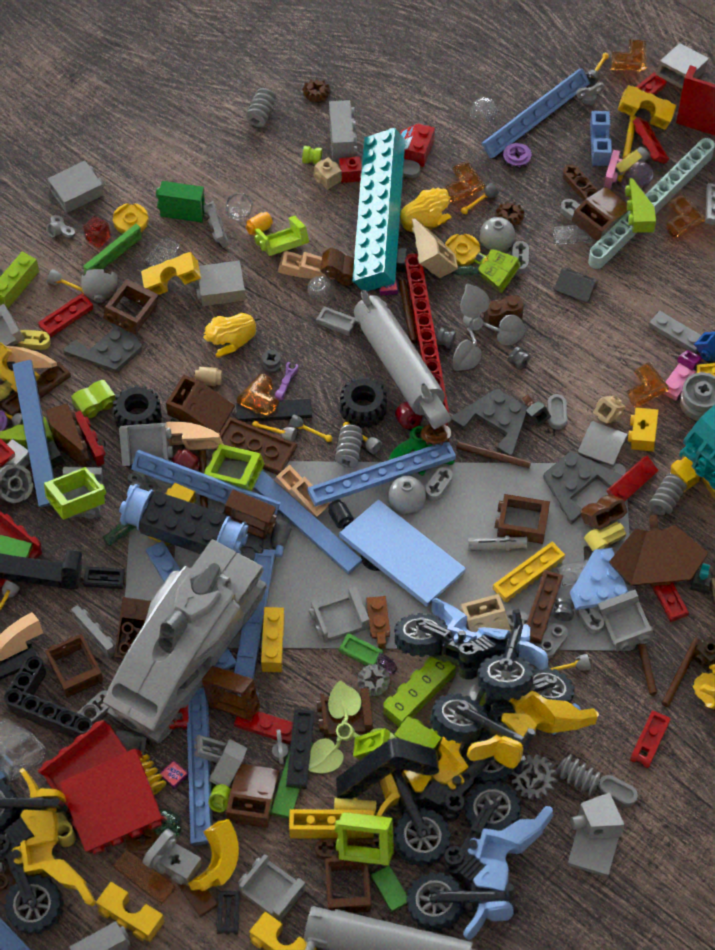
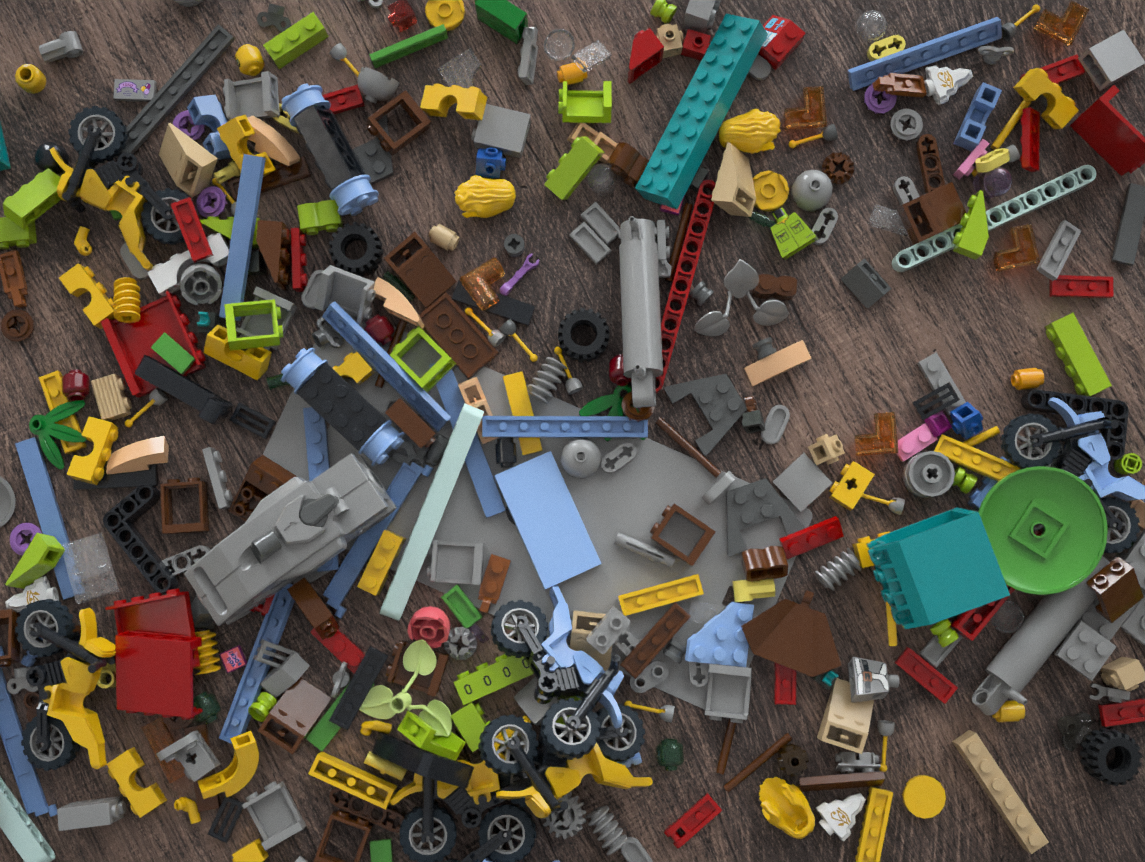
camera: 25 degrees right, 25 degrees up
(30, 514) = (207, 321): none -> pearl dark grey piece
(51, 526) = (252, 362): none -> yellow arch
(113, 362) = (331, 149): none -> brick
(113, 457) = (310, 293): none -> light grey tile
(189, 916) = (188, 806): none -> yellow arm
(220, 301) = (490, 163): none -> blue brick
(269, 205) = (591, 56): none -> clear plate
(294, 284) = (573, 167): none -> lime brick
(298, 583) = (431, 512): none -> light aqua beam
(313, 187) = (645, 54): none -> red slope
(326, 777) = (368, 726): none -> yellow arm
(330, 470) = (521, 406): none -> yellow tile
(334, 338) = (590, 243): none -> light grey tile
(341, 667) = (429, 625): none -> coral cylinder
(365, 823) = (370, 820): lime window -> none
(392, 305) = (663, 250): none -> light grey hinge
(498, 595) = (608, 630): none -> light grey panel
(501, 119) = (885, 44): none -> light yellow beam
(528, 138) = (901, 85): none -> dark orange hinge
(535, 364) = (777, 363): none -> light nougat slope
(535, 472) = (718, 487): none -> light grey beam
(554, 162) = (915, 123): none -> light grey gear
(561, 127) = (944, 82): none -> white rock
(602, 693) = (670, 754): none -> clear green head
(685, 430) = (895, 504): none -> hinge
(686, 329) = (920, 410): none -> black tile

